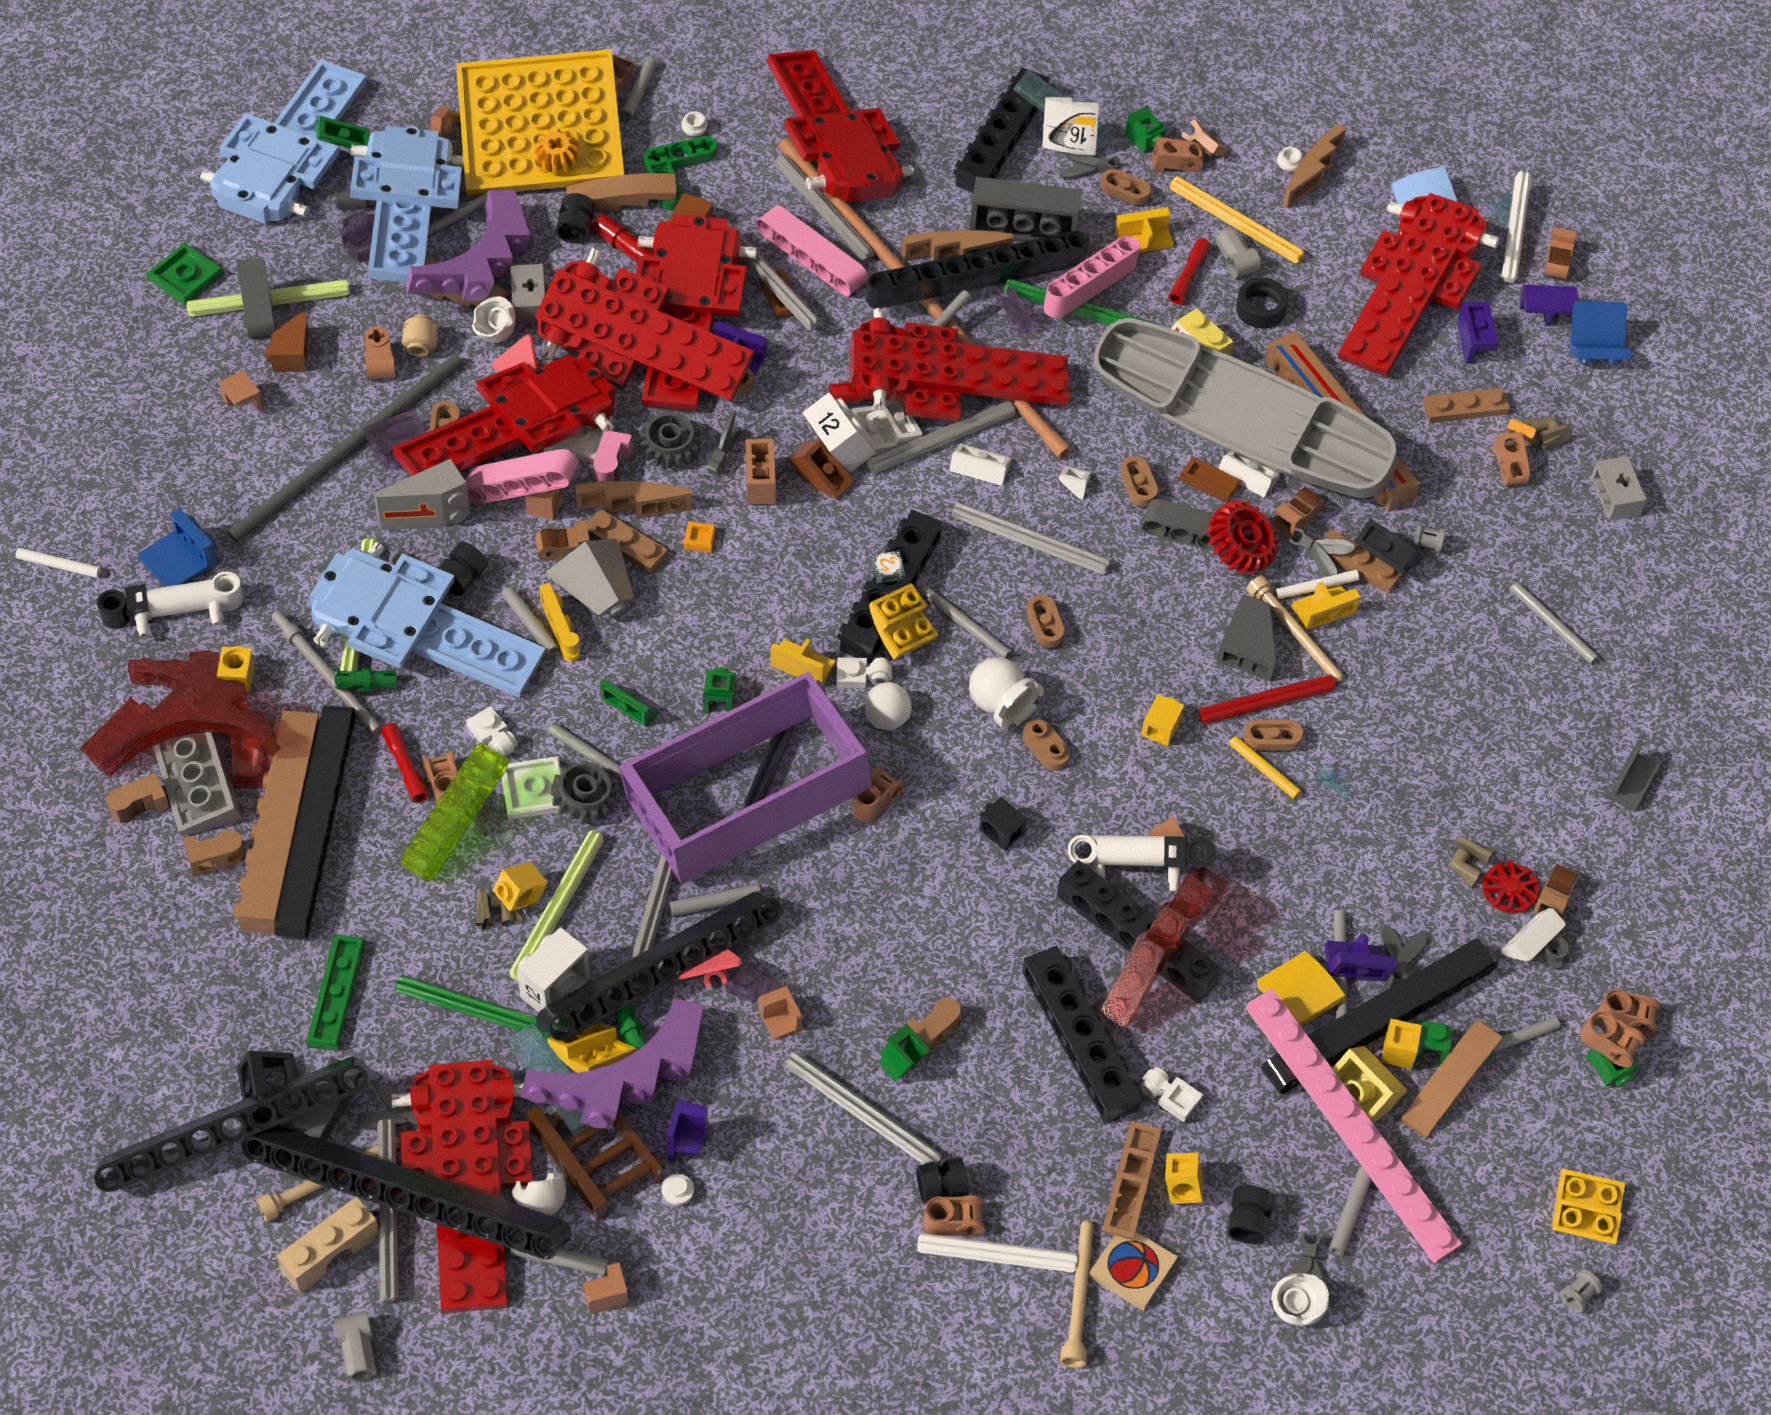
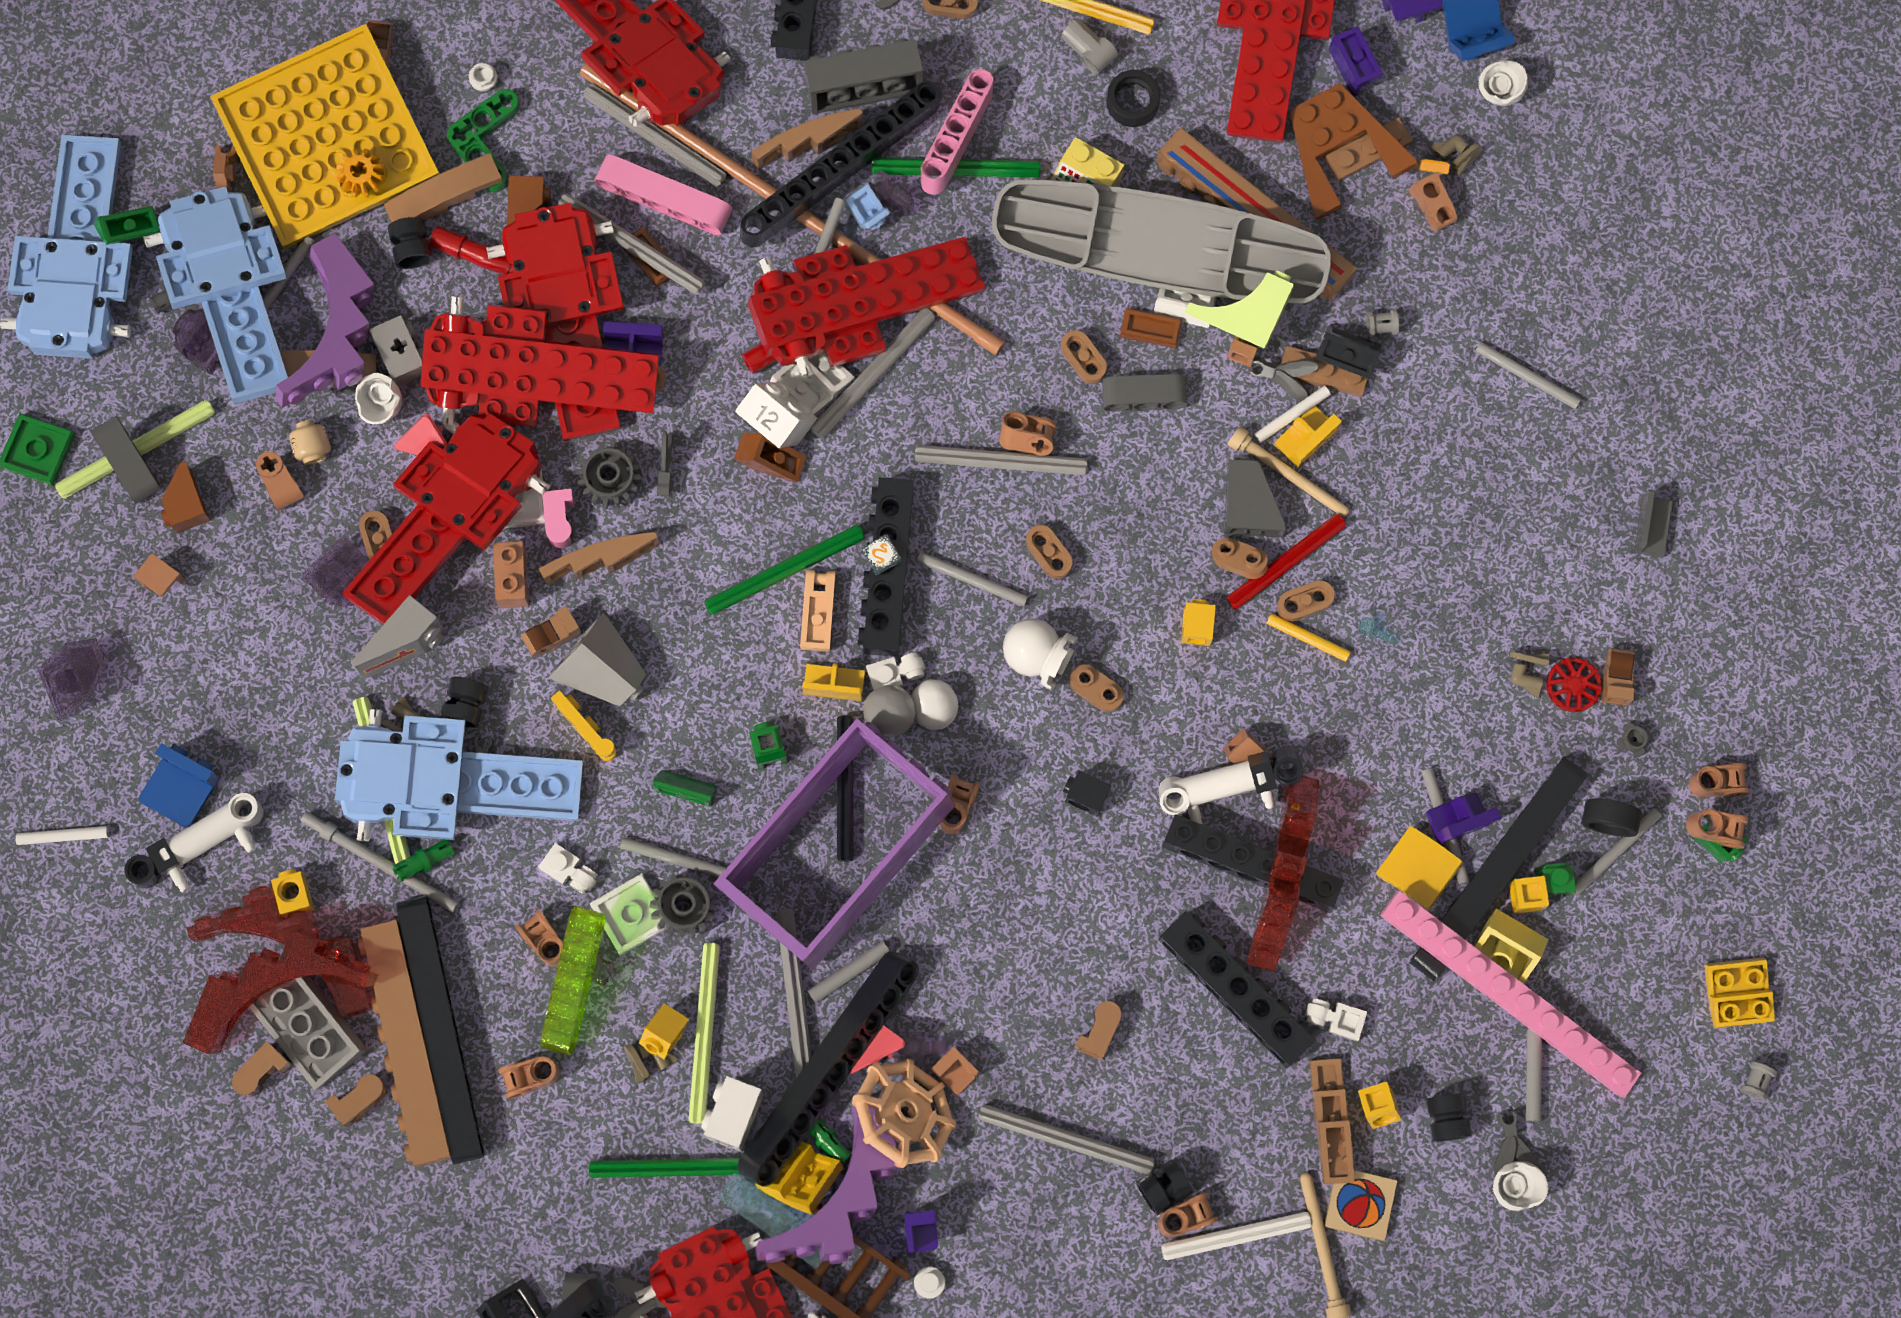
camera: 20 degrees left, 20 degrees up
(129, 440) = (72, 675): none -> clear purple slope
(335, 993) = (535, 1200): green tile -> none
(342, 449) = (289, 599): dark grey piece -> none
(377, 884) = (527, 1076): none -> nougat piece
(398, 747) = (510, 947): red piece -> none
(520, 476) = (484, 586): bright pink beam -> none
(530, 620) = (553, 731): light grey piece -> none
(633, 544) = (619, 608): medium nougat plate -> none
(639, 88) = (407, 35): light grey piece -> none
(699, 537) = (680, 575): light orange tile -> none
(732, 1012) = (892, 1121): none -> light nougat plate
(760, 471) = (713, 484): nougat brick -> none
(793, 561) = (784, 569): none -> green axle
(811, 601) = (817, 611): none -> light nougat plate
(848, 691) = (890, 710): none -> light grey piece
(902, 621) = (916, 609): yellow slope -> none
(902, 1052) = (1080, 1075): green window -> none
(980, 464) = (921, 389): white slope -> none
(987, 311) = (866, 208): none -> light blue bracket
(1061, 520) = (1024, 433): none -> nougat piece
(1075, 480) = (1021, 376): white slope -> none
(1148, 227) = (988, 50): yellow panel -> none
(1195, 259) = (1047, 100): red piece -> none
(1223, 680) = (1237, 559): none -> medium nougat plate
(1242, 537) = (1208, 392): red gear -> none
(1304, 483) = (1253, 316): none -> yellowish green arch
(1403, 955) = (1496, 794): dark grey piece -> none
(1436, 372) = (1330, 123): none -> dark orange wing
(1451, 1079) = (1583, 911): medium nougat slope -> none
(1507, 1002) = (1611, 817): none -> black tyre
(1534, 935) = (1611, 732): white slope -> none
(1610, 387) = (1503, 82): none -> white hair
(1619, 488) = (1546, 213): light grey brick -> none

